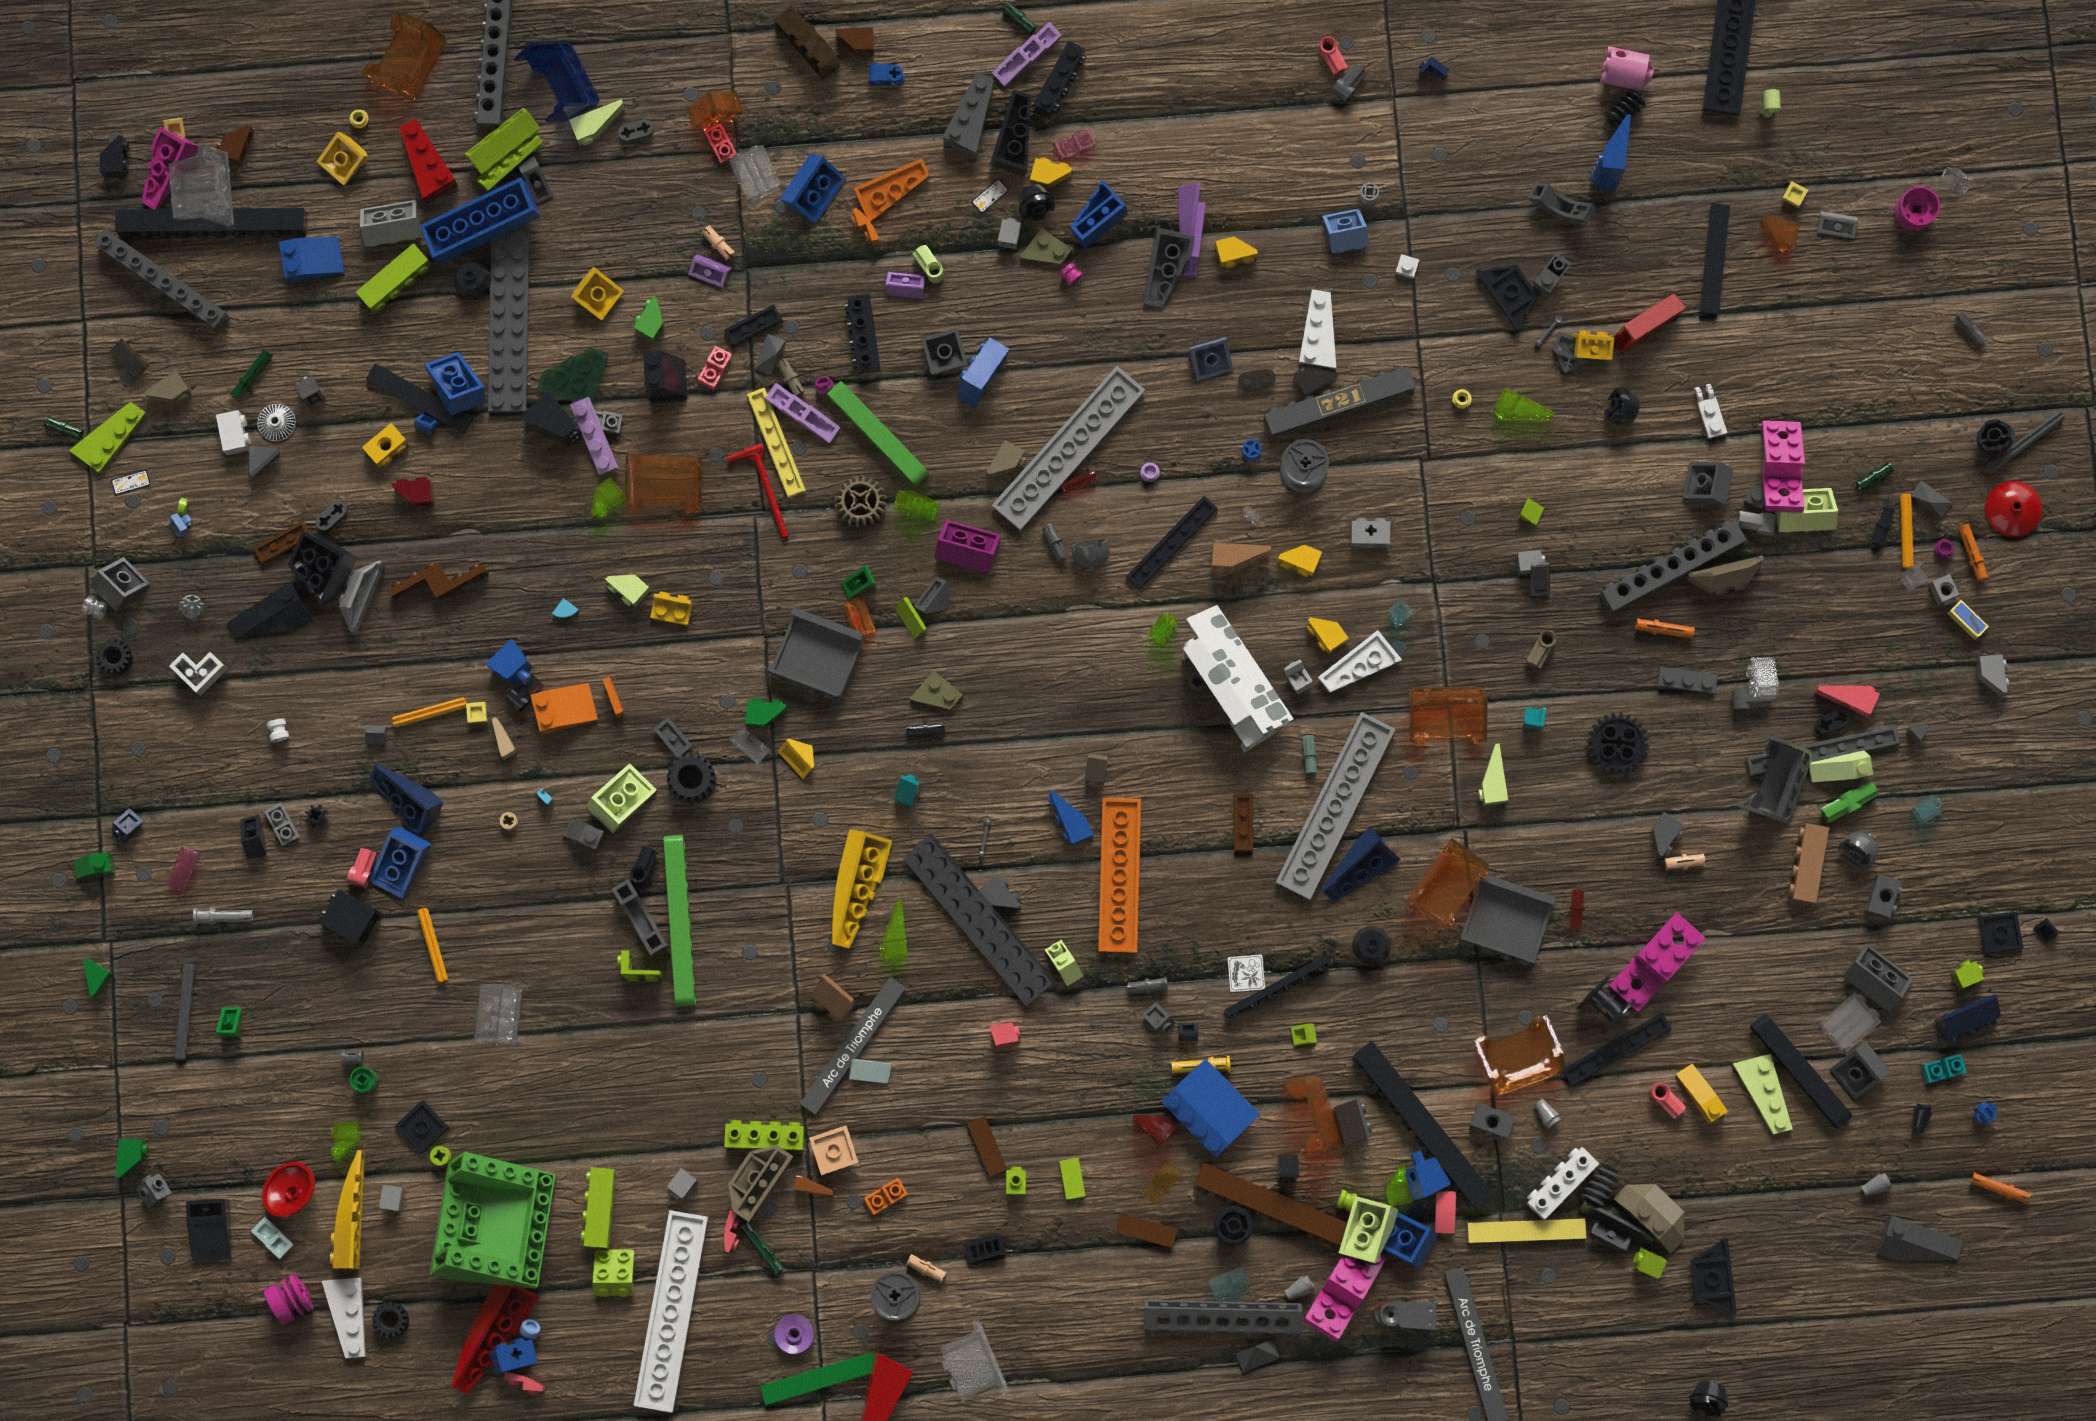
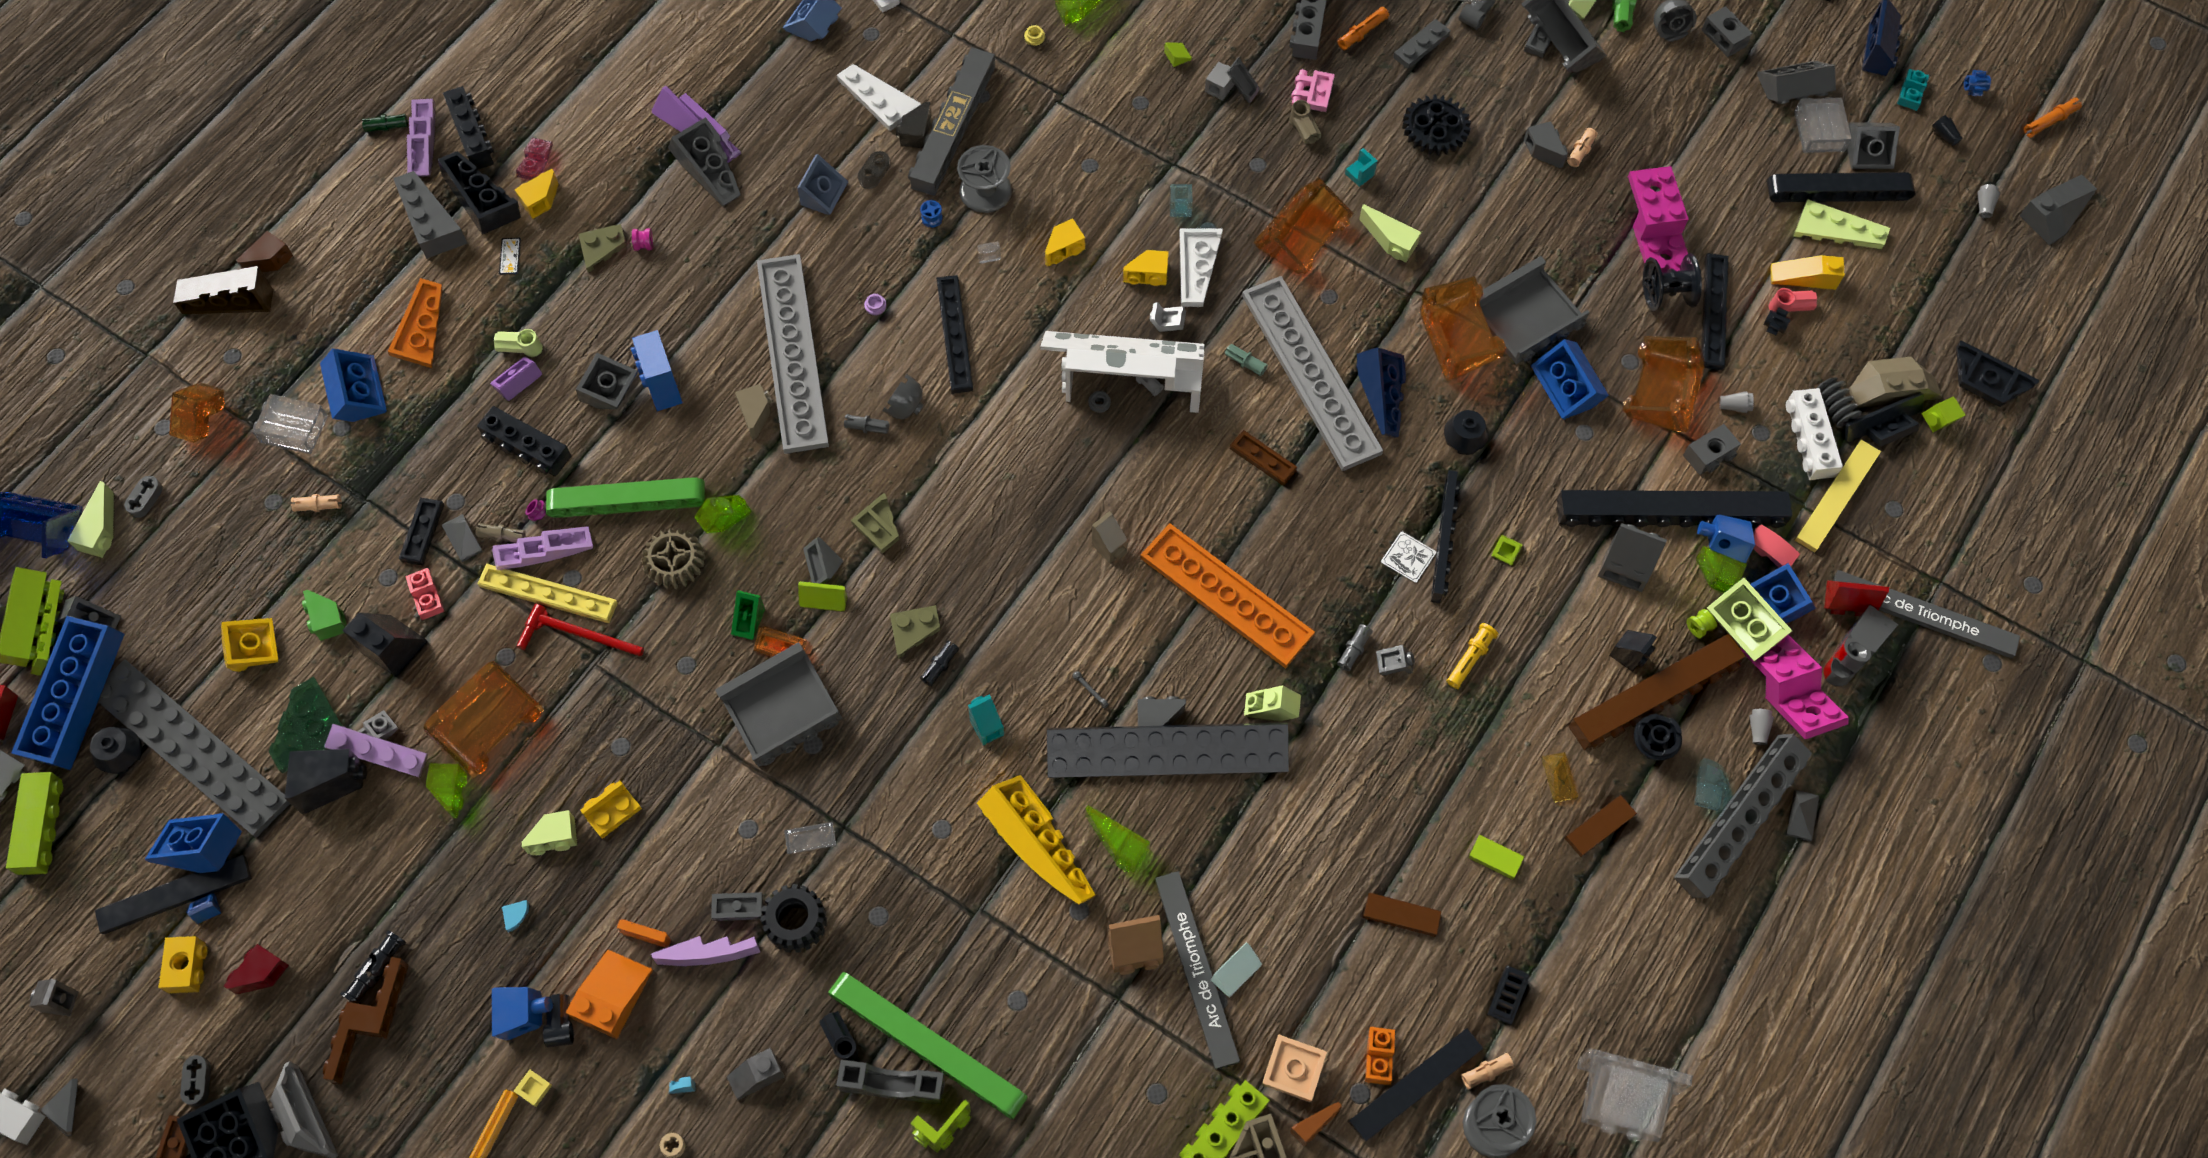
camera: 55 degrees left, 15 degrees down
(283, 428) = (58, 1067): dish -> none
(473, 557) = (375, 965): none -> black piece
(504, 743) = (590, 1083): tan slope -> none
(620, 798) = (751, 1007): yellowish green slope -> none
(627, 738) = (697, 953): none -> lavender slope
(709, 270) = (333, 531): medium lavender slope -> none
(720, 143) = (230, 434): coral slope -> none
(762, 714) = (790, 800): green slope -> none
(798, 756) = (862, 800): yellow slope -> none
(863, 223) = (428, 367): orange slope -> none
(883, 74) = (317, 257): blue piece -> none
(884, 1231) = (1415, 1085): none -> black tile
(967, 546) = (802, 499): magenta slope -> none
(989, 610) = (877, 524): none -> olive wing
(1005, 1035) = (1303, 812): coral slope -> none
(1009, 233) = (557, 260): light grey brick -> none
(1016, 1181) = (1461, 911): lime brick -> none
(1035, 202) = (552, 217): black cone -> none
(1074, 823) = (1141, 597): blue slope -> none
(1079, 481) = (830, 366): clear red axle -> none
(1098, 215) = (613, 179): blue wedge -> none
(1156, 1126) = (1505, 738): clear red slope -> none
(1163, 629) = (1028, 389): clear neon green slope -> none
(1188, 1031) = (1428, 645): black slope -> none
(1210, 1107) = (1522, 674): blue slope -> none
(1233, 557) = (1012, 288): medium nougat slope -> none
(1234, 251) = (747, 106): yellow slope -> none
(1328, 1134) = (1628, 598): clear orange windscreen -> none
(1361, 537) = (1088, 176): light grey brick -> none
(1443, 1287) = (1853, 597): none -> red slope
(1471, 986) = (1569, 379): none -> blue slope
(1576, 909) = (1560, 253): clear red axle -> none
(1579, 638) = (1319, 91): none -> bright pink plate
(1638, 1099) = (1777, 321): none -> black gear
(1709, 1398) = (2111, 452): black cone -> none
(1809, 864) = (1657, 62): medium nougat brick -> none
(1968, 974) = (1842, 19): lime brick -> none

